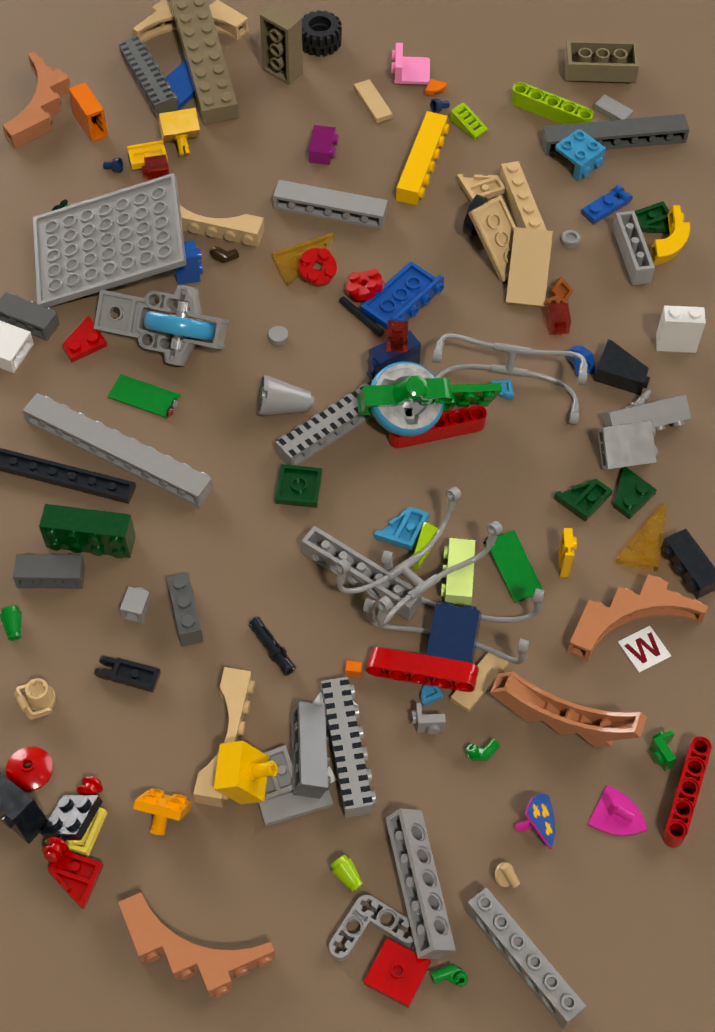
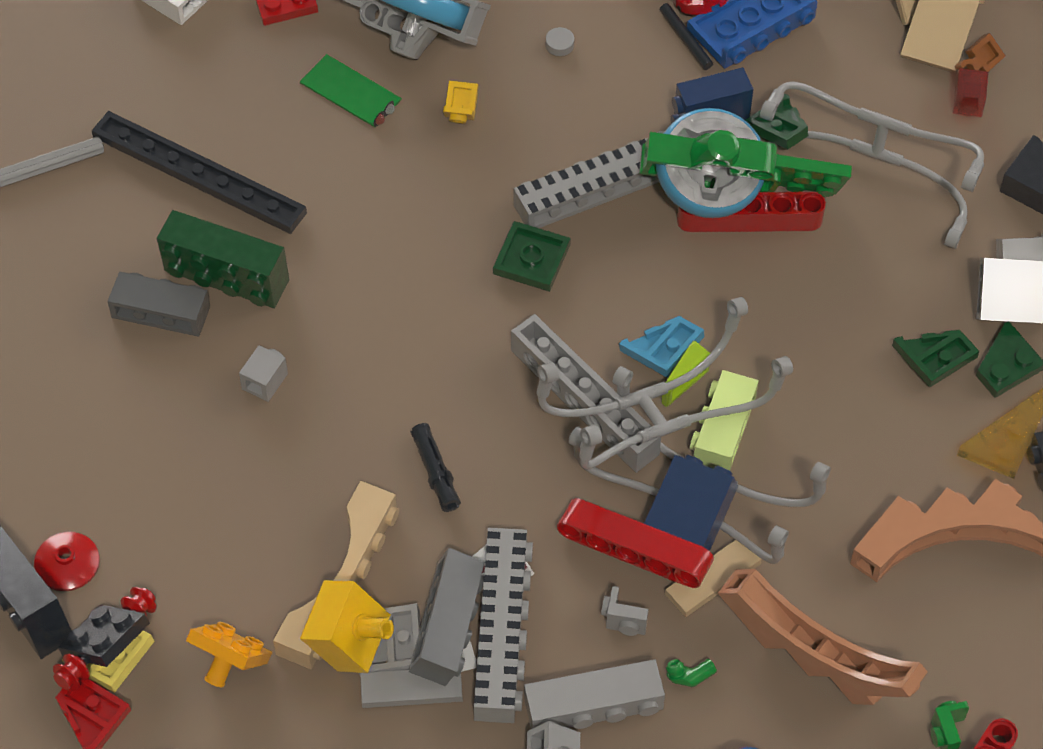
camera: 15 degrees right, 0 degrees up
(11, 620) = (92, 359): green cone -> none
(39, 698) = (102, 471): tan piece -> none
(118, 449) = (296, 158): light grey brick -> none
(129, 673) = (231, 463): black hinge -> none
(185, 609) = (328, 393): dark grey brick -> none
(222, 389) = (461, 101): none -> yellow bracket
(282, 398) = (541, 129): light grey cone -> none
(353, 669) = (540, 522): orange piece -> none
(397, 336) = (719, 72): clear red brick -> none
(424, 782) = (596, 696): none -> light grey brick
(430, 694) = (638, 581): dark azure tile -> none
(446, 369) = (784, 129): none -> dark green wing
(507, 389) = (863, 177): dark azure tile -> none
(514, 566) = (807, 427): green piece -> none
(566, 551) = (887, 423): yellow plate -> none
(588, 356) = (993, 158): blue bracket -> none
(644, 649) = (964, 583): white sticker -> none

